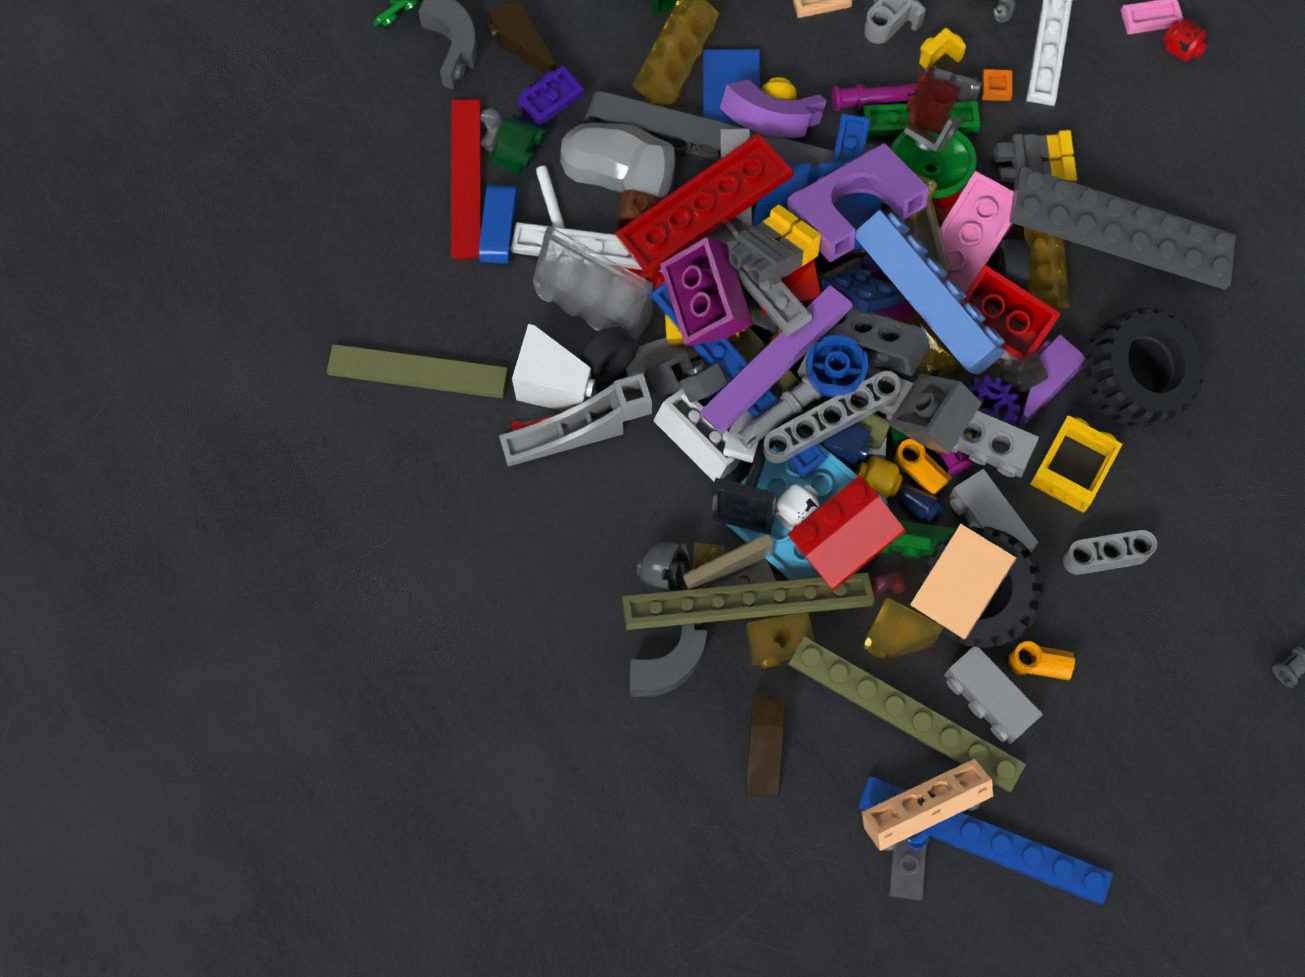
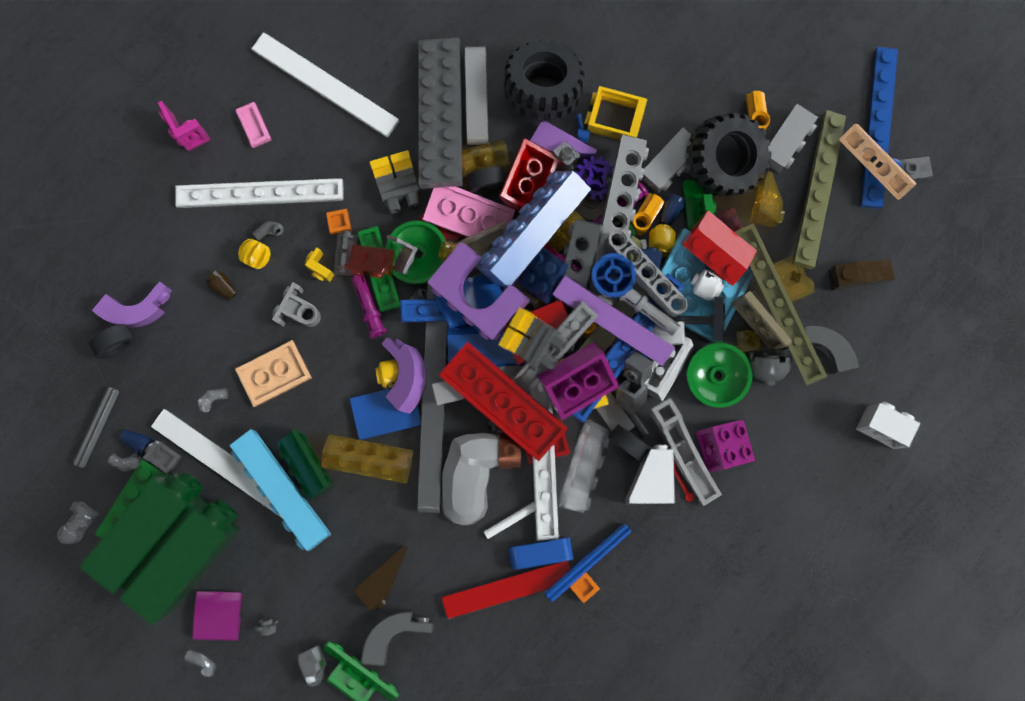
camera: 105 degrees left, 10 degrees up
(417, 371) = (668, 580): olive tile -> none
(440, 265) = (585, 587): none -> orange plate
(470, 275) = (587, 562): none -> blue axle
(492, 121) = (460, 580): clear arm -> none
(515, 142) = (470, 559): dark green cylinder -> none
(536, 705) = (888, 425): none -> white brick
(550, 95) = (429, 543): dark purple bracket -> none
(570, 490) = (725, 446): none -> magenta bracket
(666, 481) = (734, 379): none -> green dish
(936, 412) = (625, 205): dark grey slope -> none
(963, 581) = (737, 163): light nougat tile -> none
(1058, 413) = (583, 135): none -> blue hand
(1122, 545) = (673, 74): light grey beam -> none
(1140, 288) = (476, 95): none -> light grey beam
(1185, 40) = (272, 96): red head -> none
(1191, 110) = (325, 85): none -> white tile

